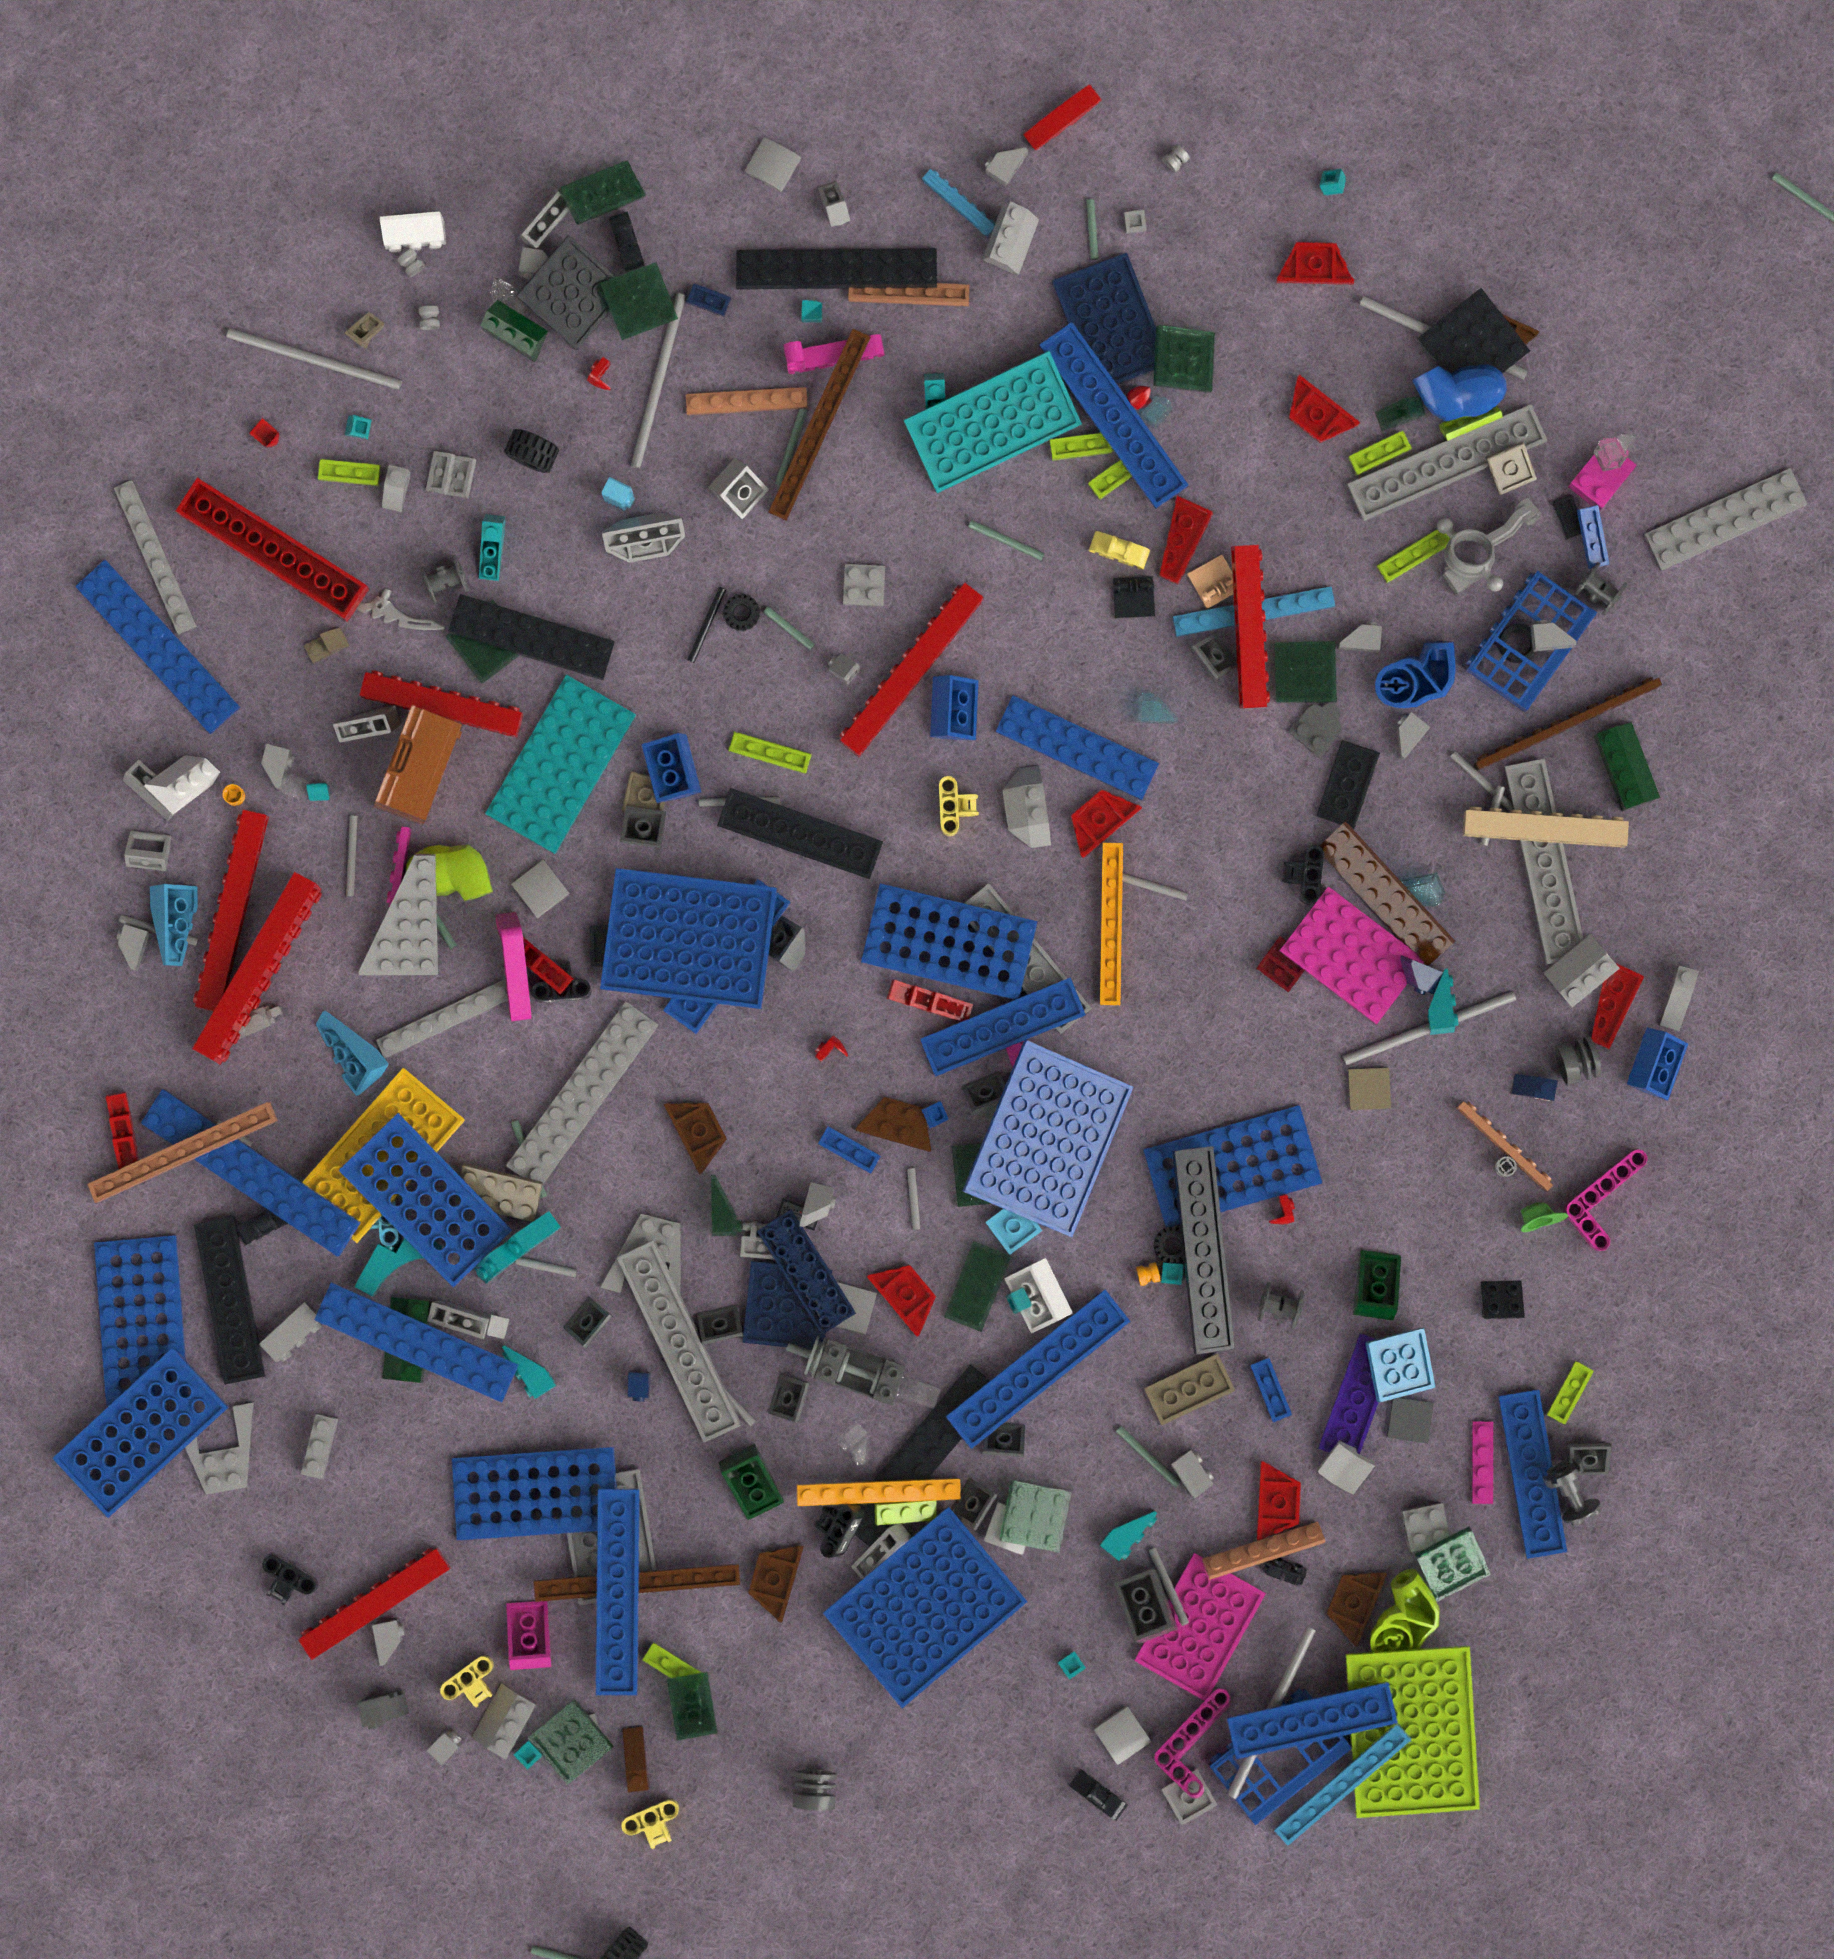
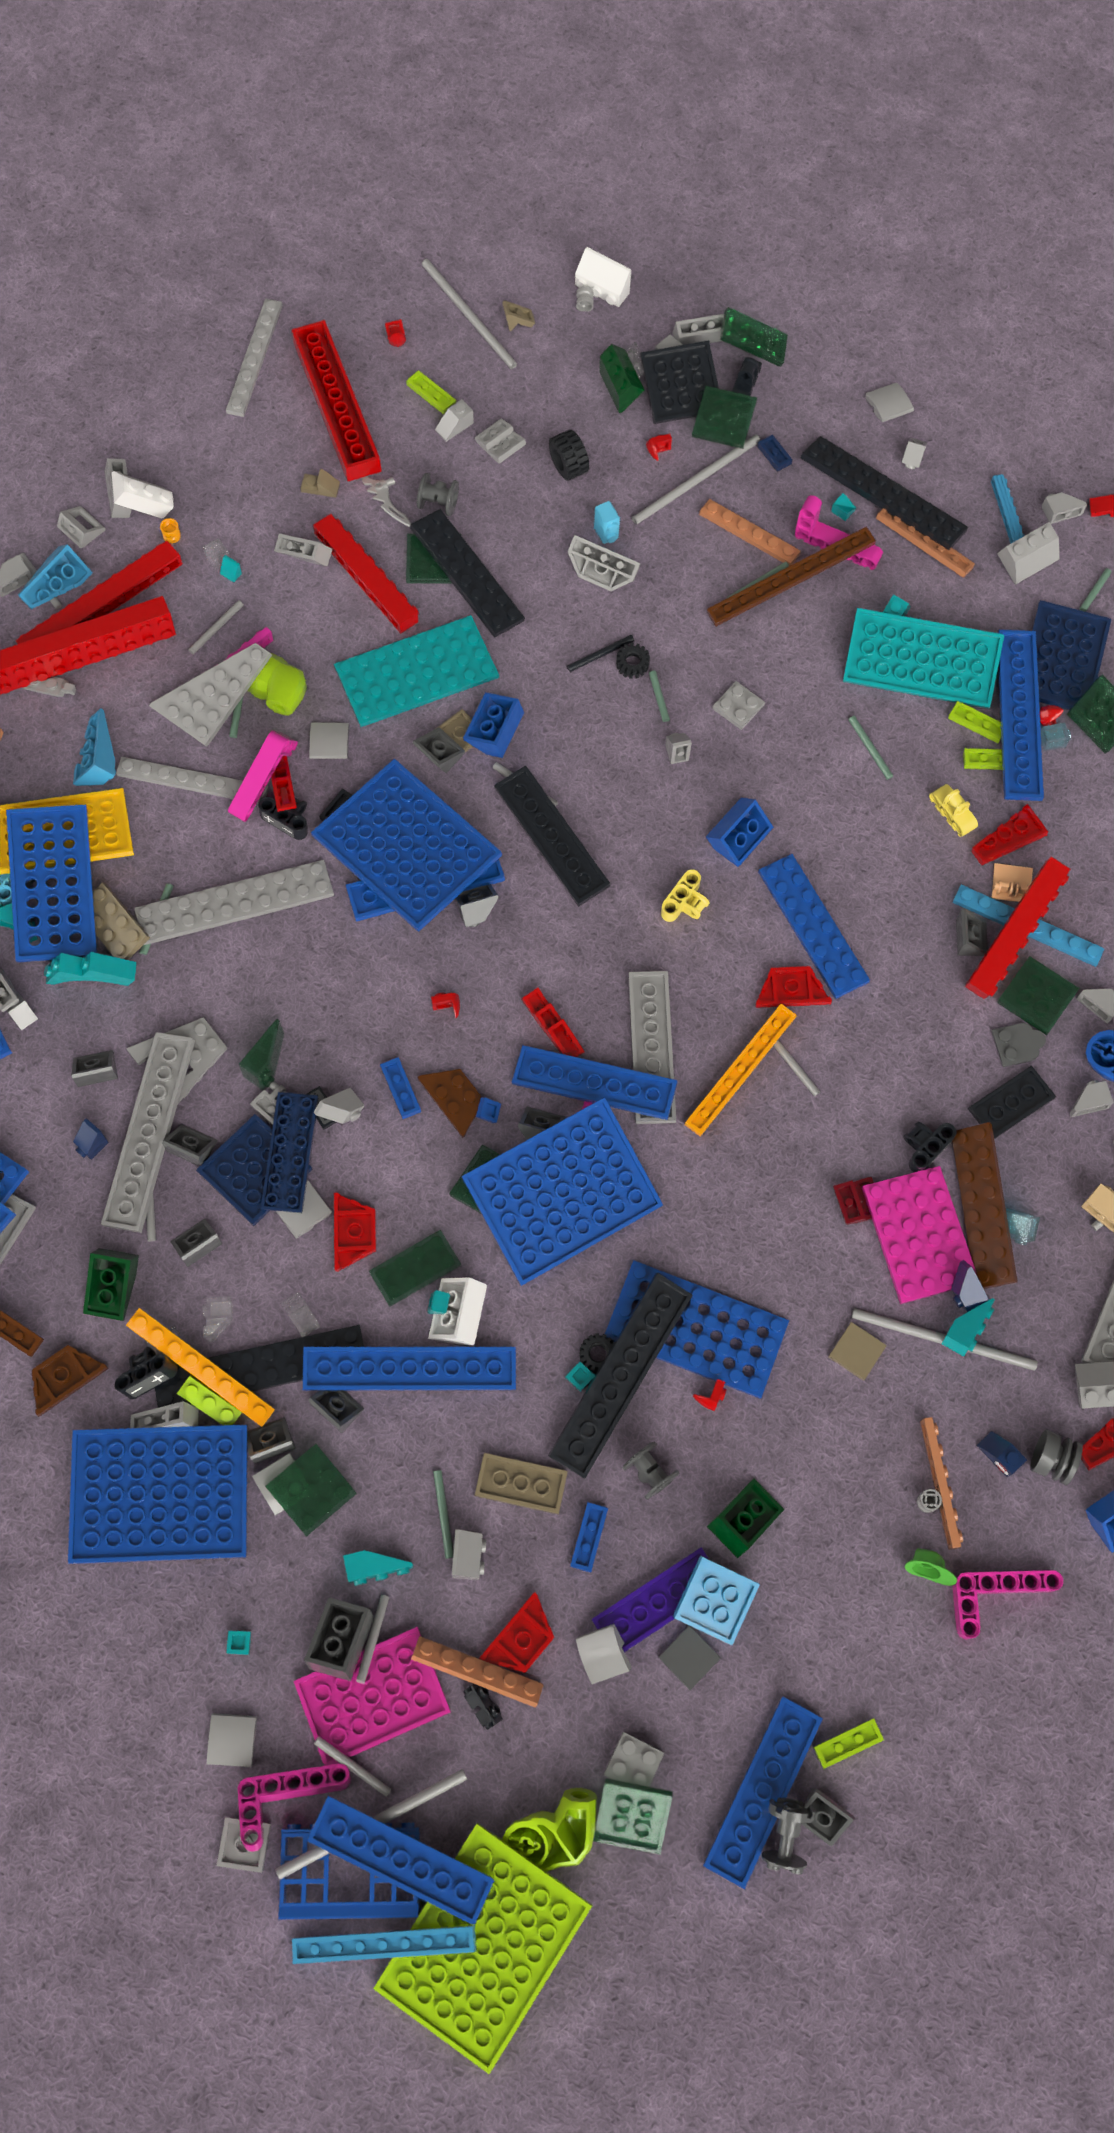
camera: 35 degrees right, 15 degrees down
(157, 646) = (205, 411): blue plate -> none
(276, 763) = (218, 527): light grey slope -> none
(358, 427) = (462, 371): teal slope -> none
(417, 765) = (310, 584): dark orange piece -> none
(429, 317) = (569, 337): light grey wheel -> none
(491, 546) = (489, 500): teal slope -> none
(535, 1376) = (19, 1076): teal slope -> none
(546, 1267) = (100, 1004): light grey bar -> none
(698, 1131) = (297, 990): reddish brown wing -> none
(738, 488) = (698, 580): light grey slope -> none
(770, 752) = (575, 768): lime tile -> none
(852, 1369) = (261, 1253): dark grey piece -> none
(911, 670) = (728, 783): red brick -> none
(913, 1199) = (420, 1162): light grey bar -> none
(966, 913) = (601, 1003): blue piece -> none
(1012, 1229) = (478, 1244): medium azure plate -> none
(1027, 807) = (740, 940): light grey wedge -> none
(1098, 1795) = (167, 1778): black beam -> none
(1133, 597) = (939, 851): black hinge -> none
(1148, 1274) = (560, 1361): light orange wheel -> none
(1154, 710) = (894, 939): clear light blue slope -> none
(1235, 1684) = (352, 1766): none -> light grey bar
(1354, 1603) = (521, 1783): reddish brown wing -> none
(1482, 1462) = (725, 1746): dark pink plate -> none
(1502, 1299) = (845, 1614): black hinge -> none

